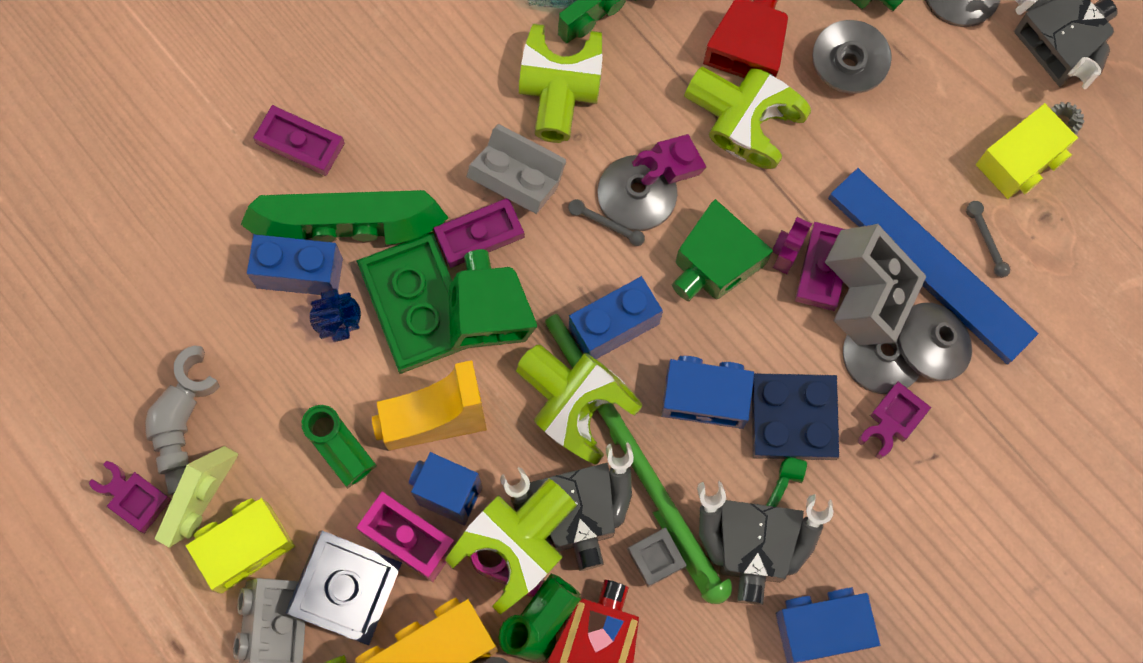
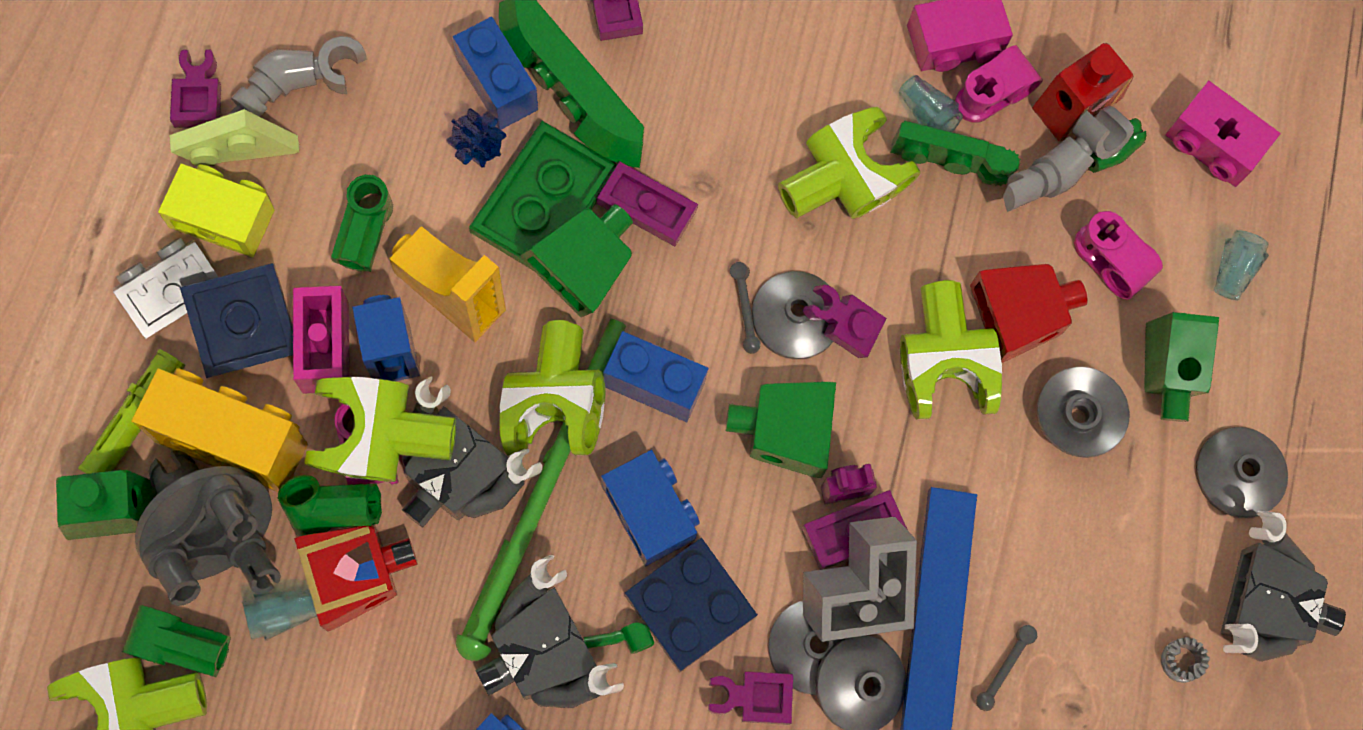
camera: 45 degrees right, 0 degrees up
(517, 169) = (730, 194): light grey bracket -> none
(656, 557) = (463, 570): flat silver plate -> none
(1026, 151) = (1121, 643): neon yellow brick -> none

